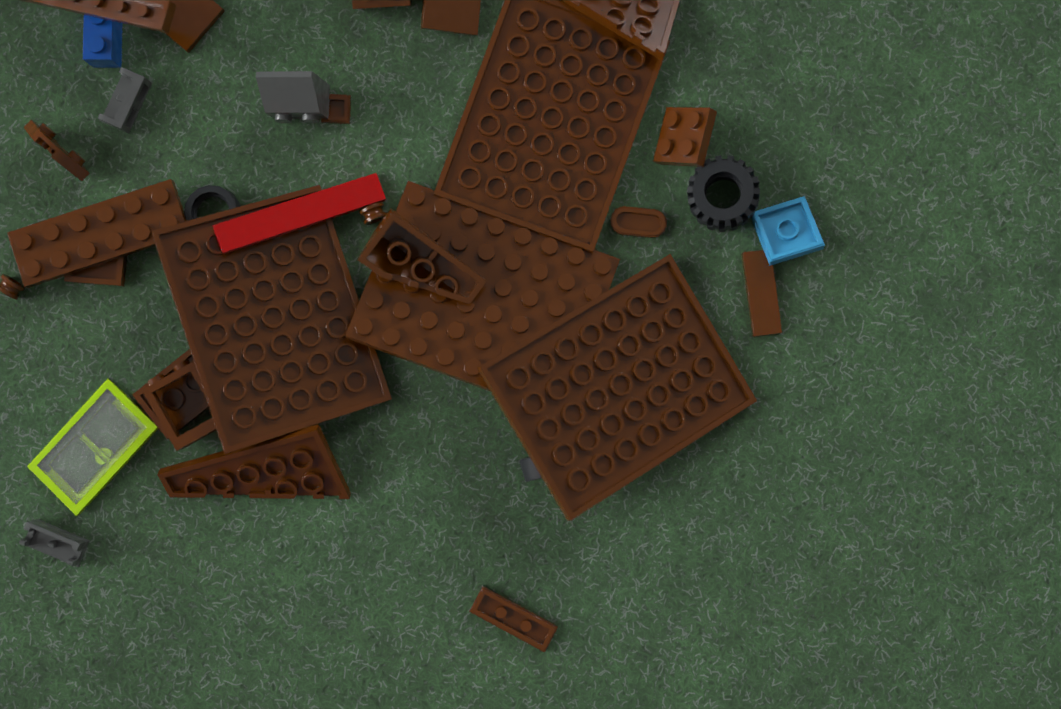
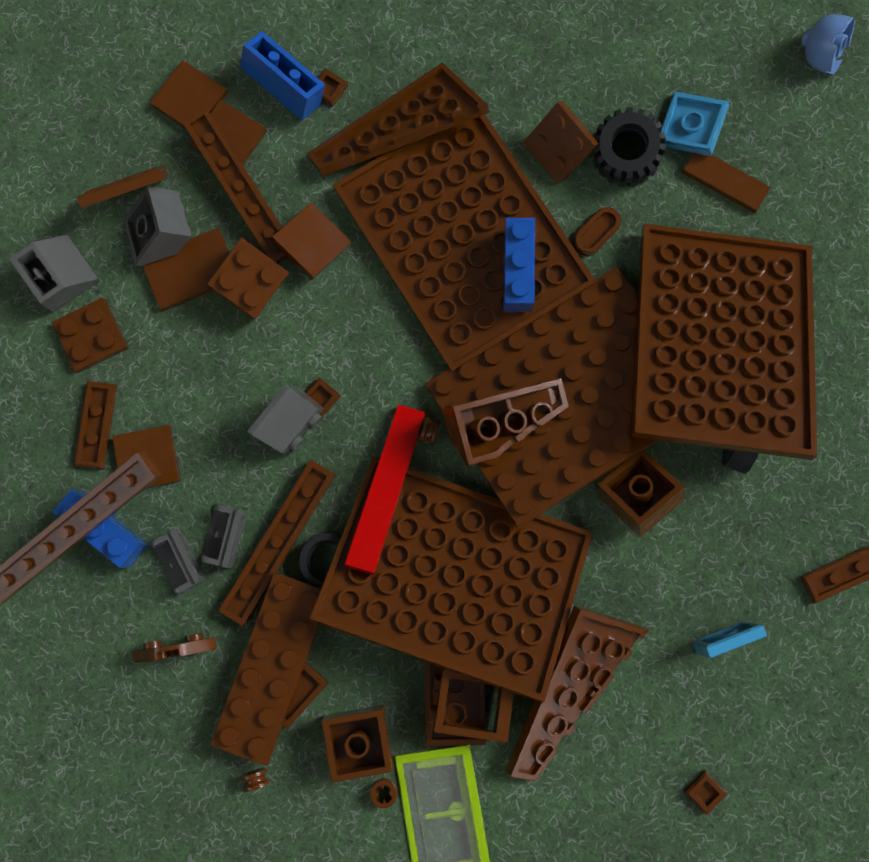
camera: 50 degrees left, 5 degrees down
(79, 398) = (374, 793): none -> reddish brown bush
(93, 342) = (357, 743): none -> reddish brown brick
(170, 120) = (224, 536): none -> dark grey hinge
(198, 164) = (277, 543): none -> reddish brown plate
(260, 632) = (705, 792): none -> reddish brown tile
(385, 561) = (729, 639): none -> dark azure tile
(448, 411) = (641, 492): none -> reddish brown brick
(555, 179) = (519, 265): none -> blue brick
(941, 287) = (827, 42): none -> medium blue cylinder

